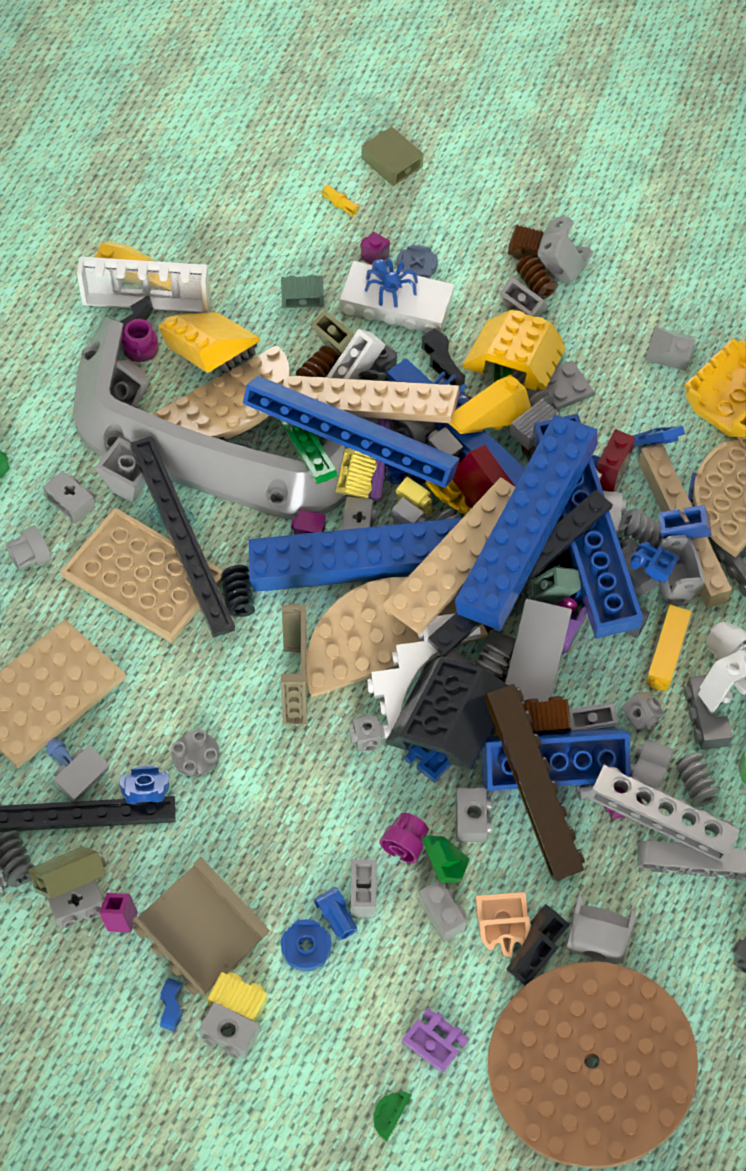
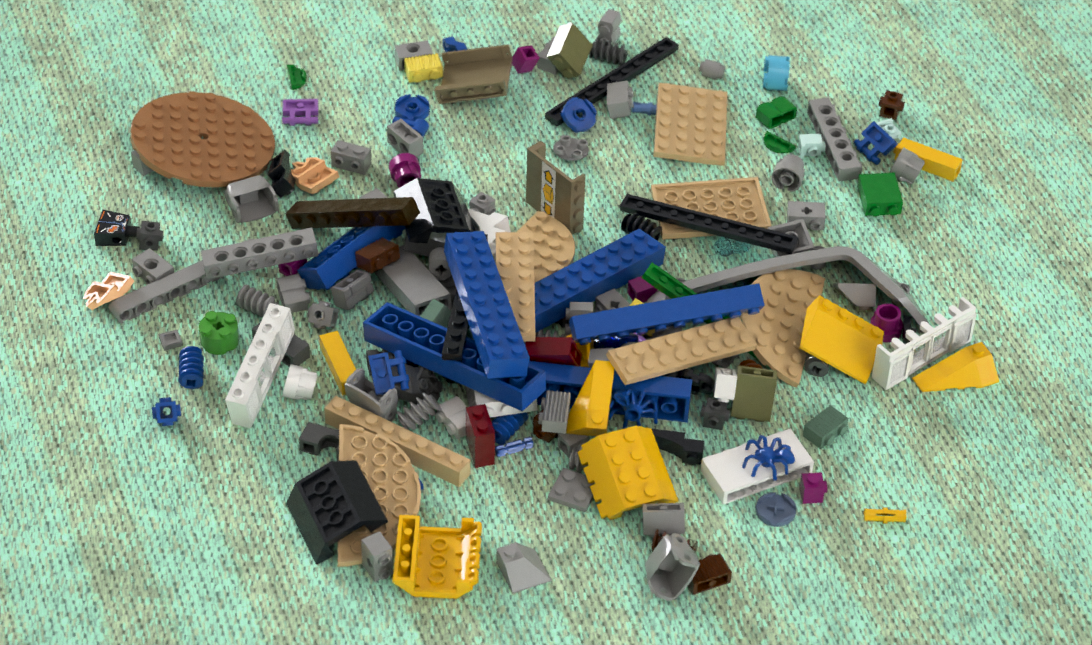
camera: 140 degrees right, 15 degrees down
(392, 156) = (890, 572): olive brick -> none
(446, 859) = (370, 174): green plate -> none
(659, 435) = (470, 476): blue wing -> none
(698, 526) = (388, 407): blue piece -> none

